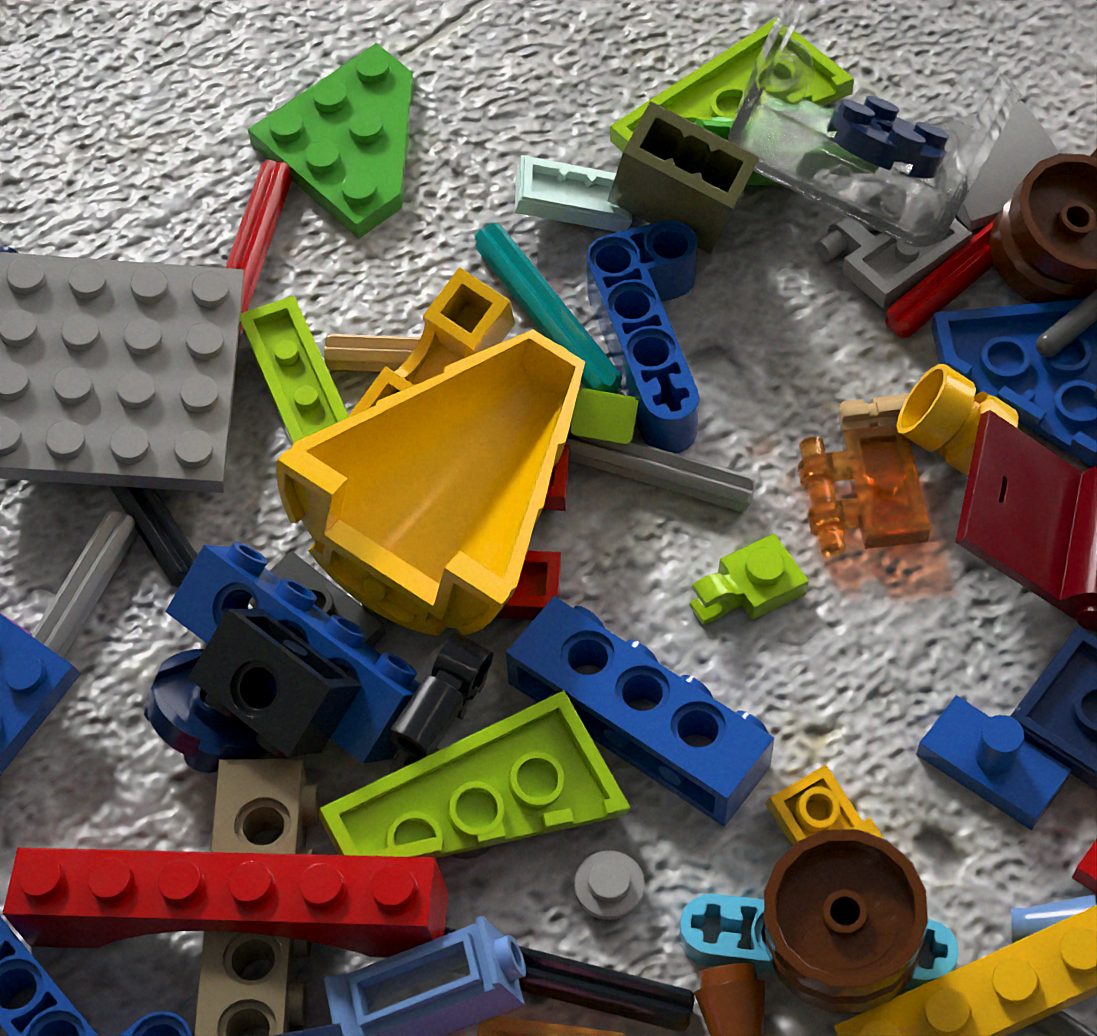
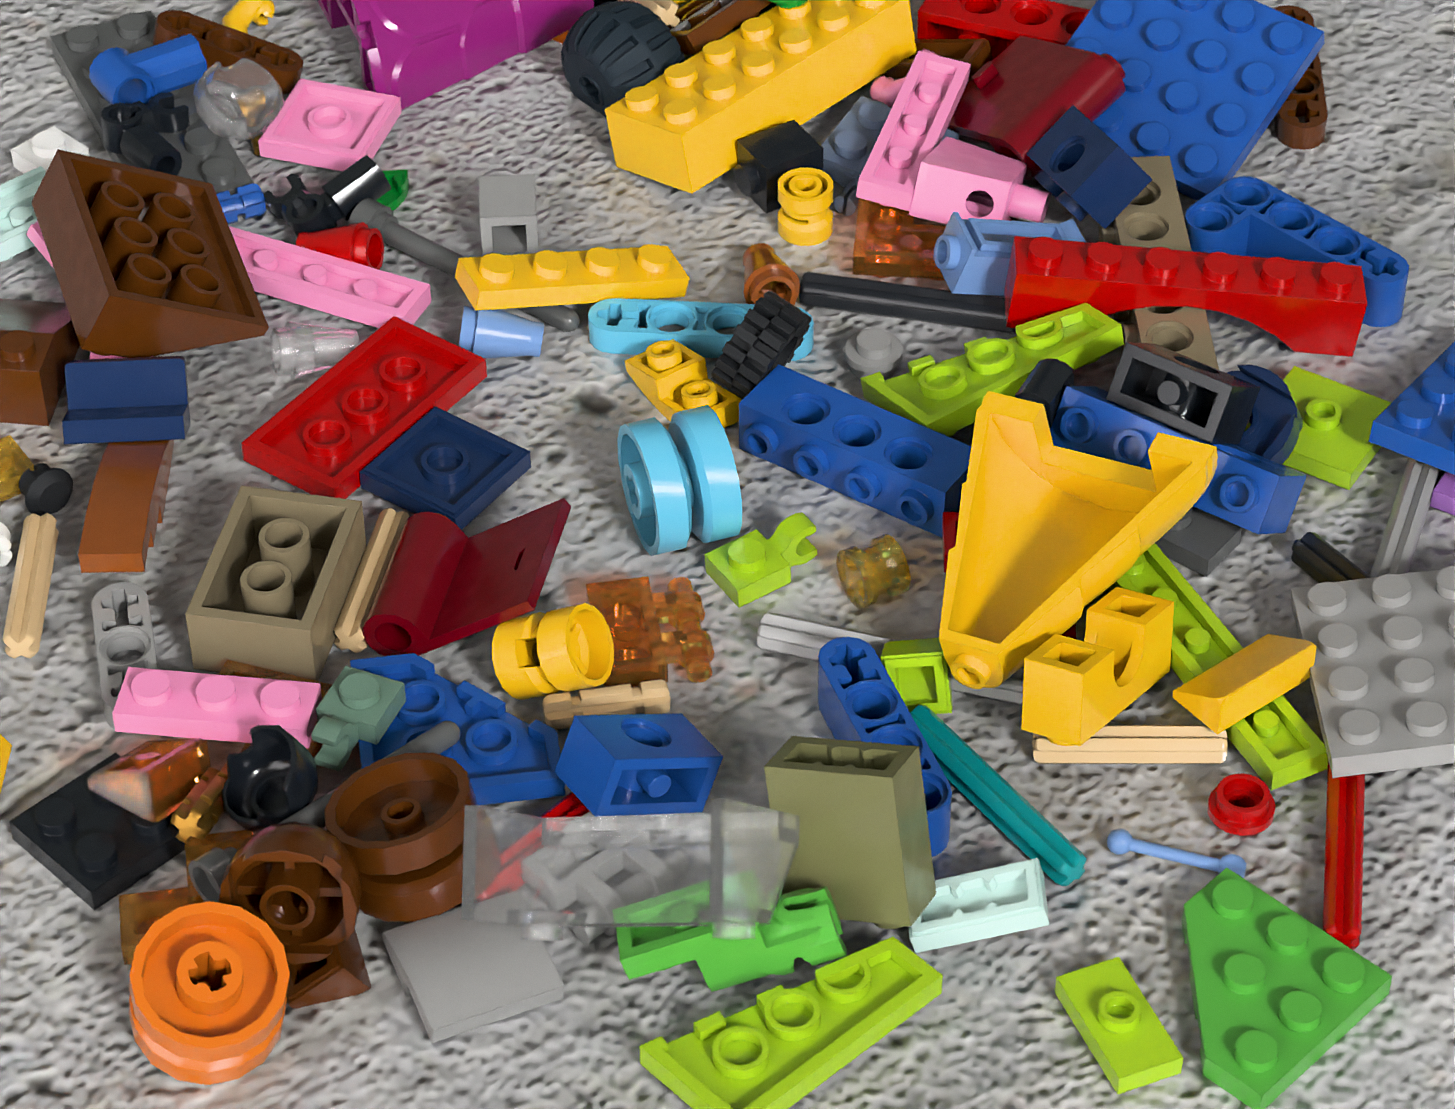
camera: 175 degrees right, 15 degrees down
(108, 752) = (1334, 428): none -> lime plate
(294, 366) = (1247, 680): none -> yellow slope
(324, 275) = (1241, 805): none -> red plate
(350, 246) = (1121, 842): none -> medium blue hinge
(473, 111) = (1118, 1025): none -> lime plate
(635, 542) = (873, 571): none -> clear yellow wheel
(745, 828) = (760, 343): none -> black tyre
(841, 617) = (679, 480): none -> medium azure wheel
(852, 878) = (683, 276): reddish brown wheel -> none
(877, 263) = (638, 764): none -> blue brick
(882, 138) = (575, 859): dark blue plate -> none
(994, 761) = (557, 450): blue tile -> none

